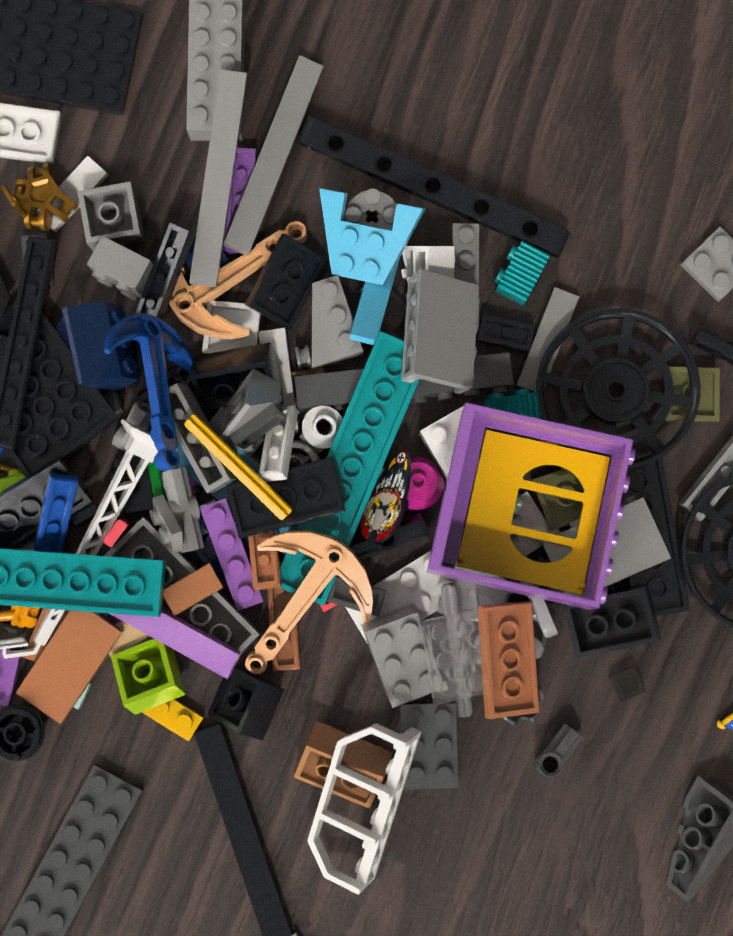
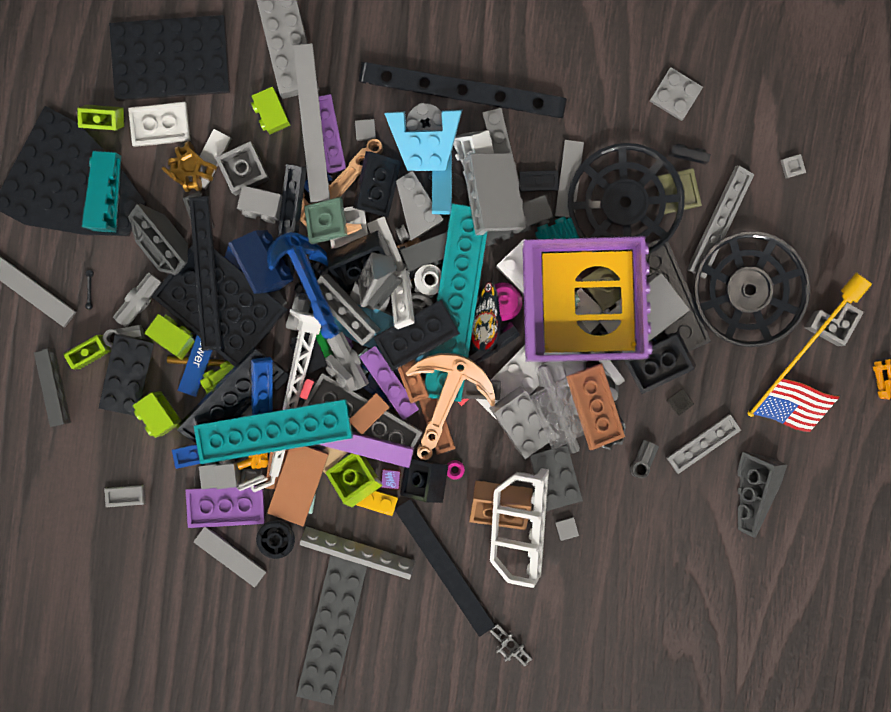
camera: 10 degrees left, 5 degrees up
(126, 780) = (357, 552): none -> light grey plate
(169, 150) = (271, 110): none -> lime brick
(200, 689) = (390, 479): none -> medium lavender tile
(203, 312) = (325, 220): none -> sand green tile
(238, 466) = (378, 322): yellow axle -> none
(273, 156) = (344, 95): light grey tile -> none
(289, 207) = (365, 130): none -> light grey tile
(293, 707) = (459, 474): none -> dark pink plate
(426, 821) = (567, 528): none -> light grey tile
(522, 273) = (540, 135): teal brick -> none
(646, 750) = (703, 444): none -> light grey plate

